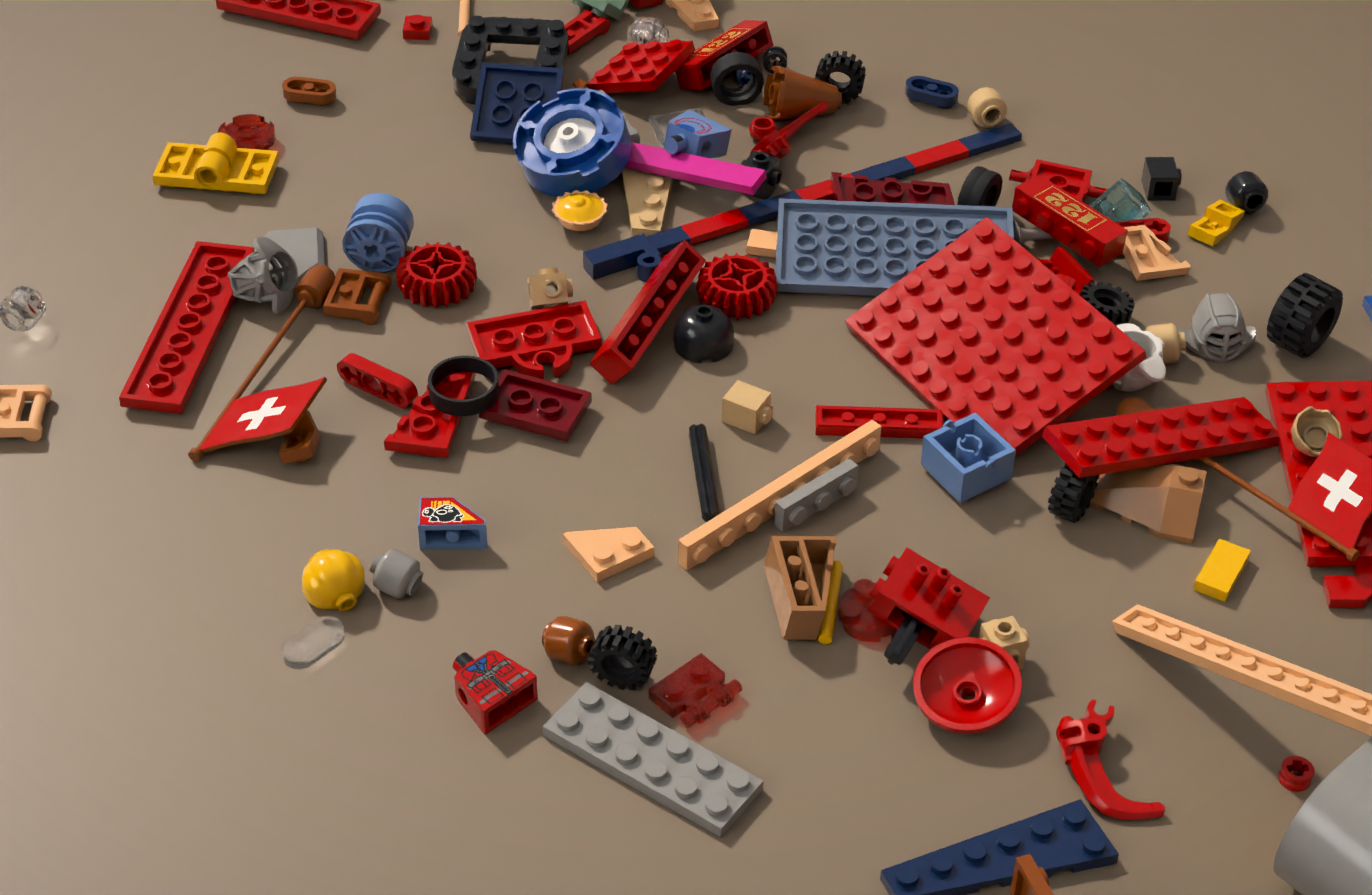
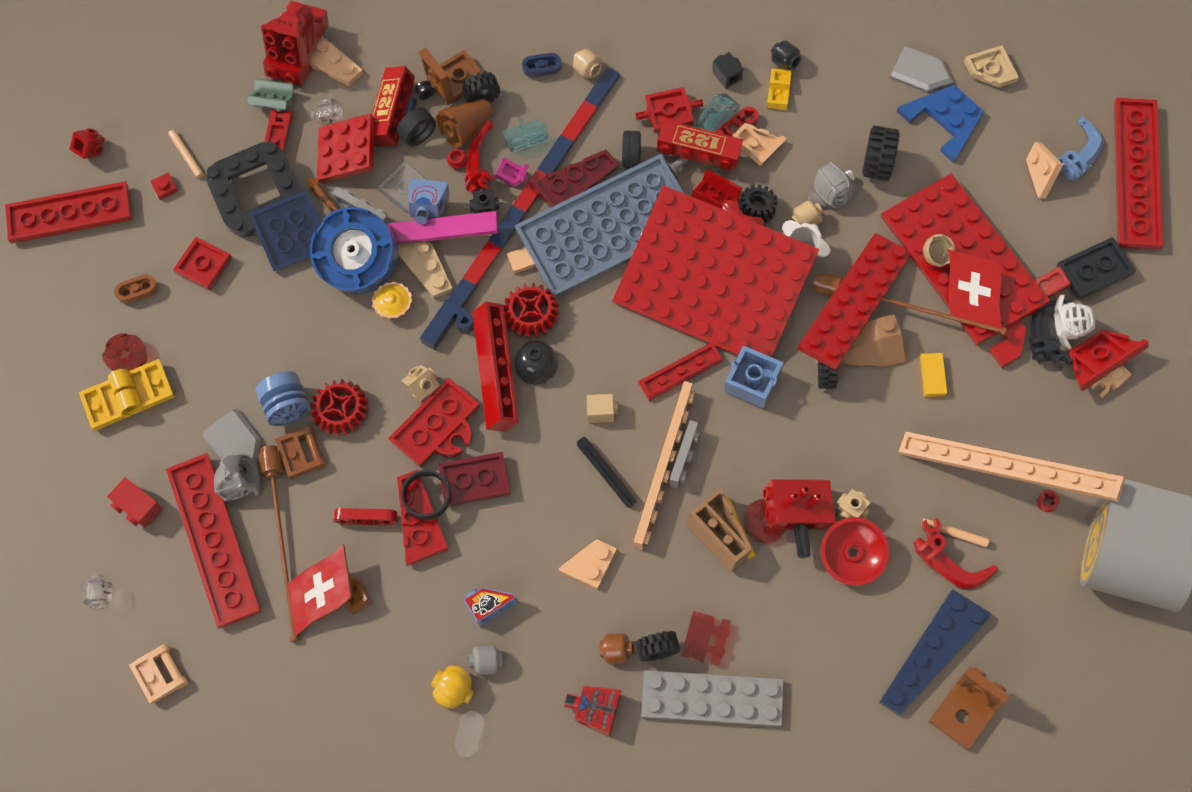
camera: 25 degrees left, 25 degrees up
(134, 253) = (134, 502): none -> red brick
(399, 99) = (202, 263): none -> red plate
(803, 57) = (443, 75): none -> dark orange bracket
(816, 162) = (512, 173): none -> dark pink bracket
(861, 141) = (525, 135): none -> clear light blue panel
(1140, 752) = (957, 533): none -> light nougat bar

